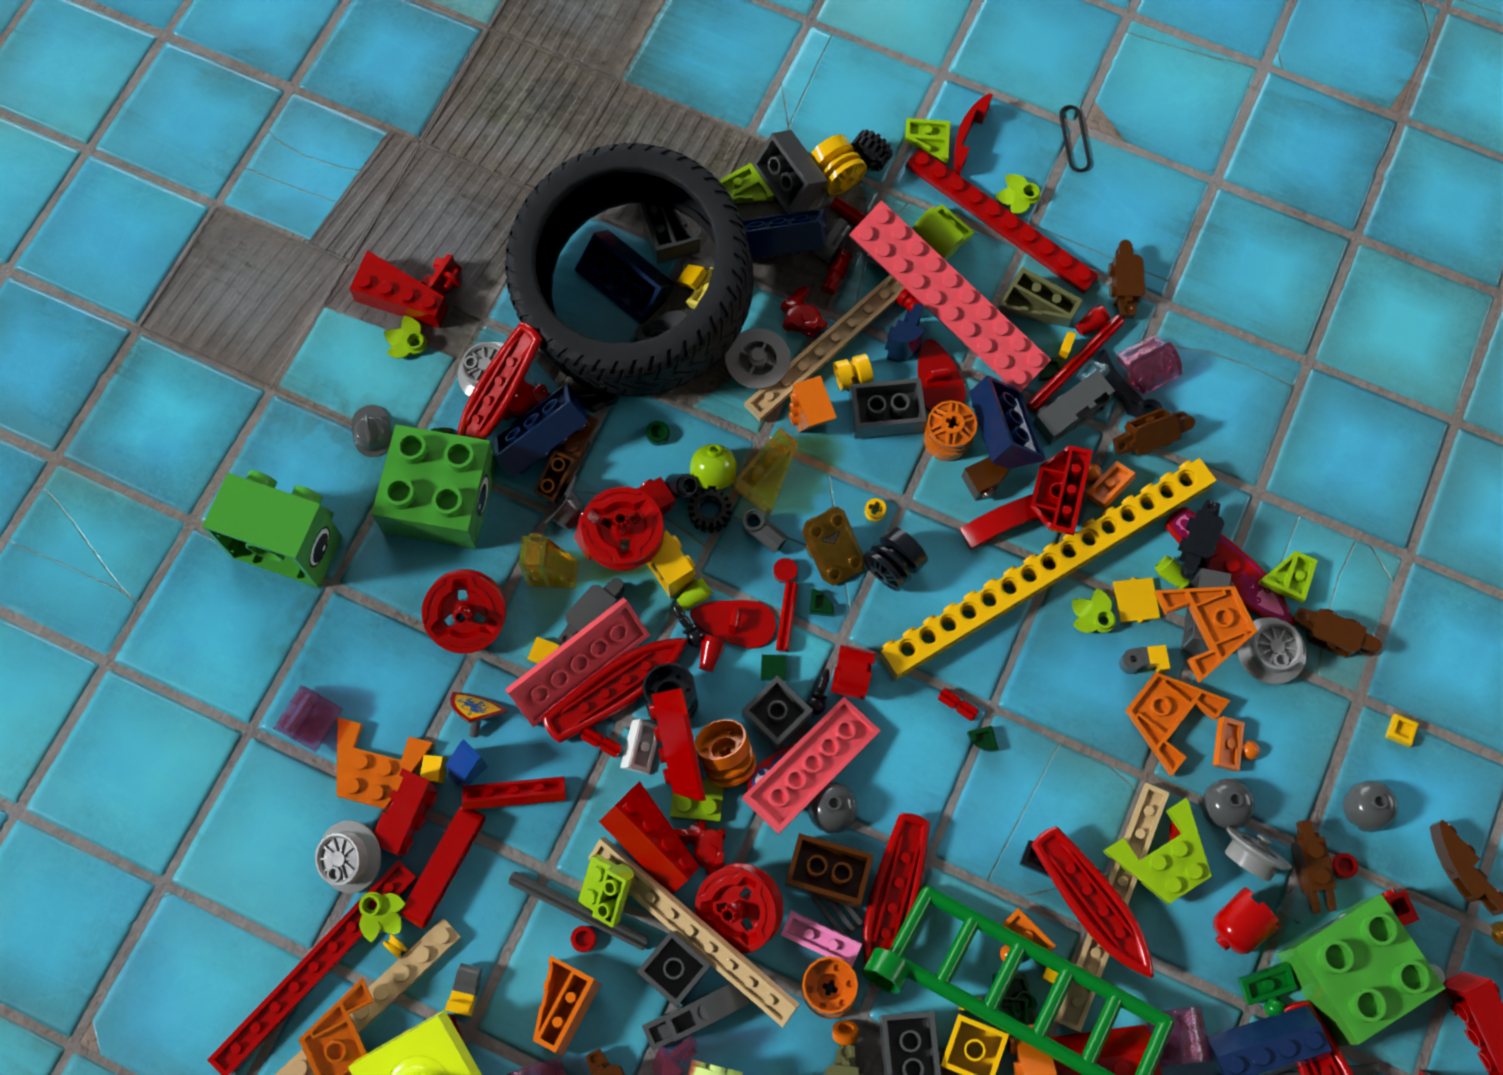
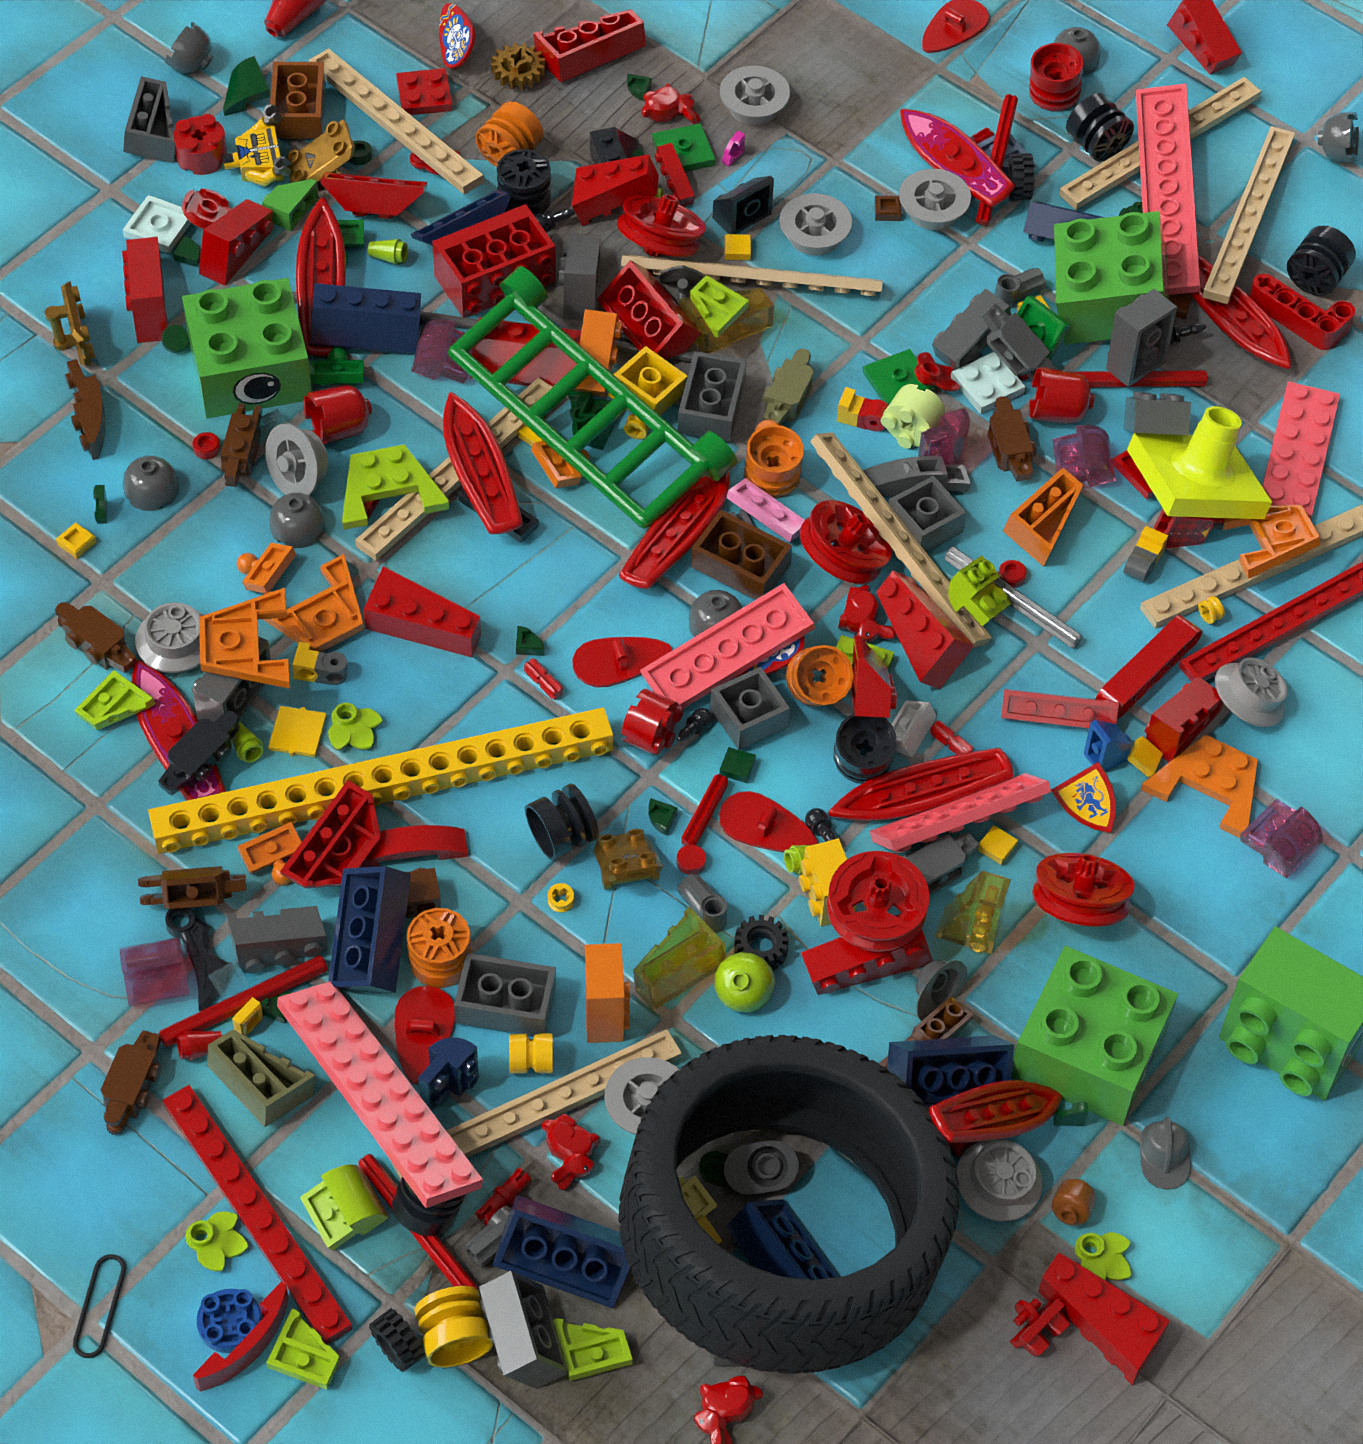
camera: 165 degrees left, 15 degrees down
(383, 918) = (1225, 634): lime plate -> none
(431, 366) = (1074, 1202): none -> dark orange head
(681, 485) = (789, 971): black brick -> none
(710, 652) = (803, 795): red cone -> none
(903, 745) = (616, 659): none -> red shield
(987, 147) = (227, 1318): none -> blue tile
(1086, 730) = (420, 615): none -> red wedge
(1400, 771) = (100, 497): none -> dark green tile
(1404, 908) = (177, 399): red brick -> none

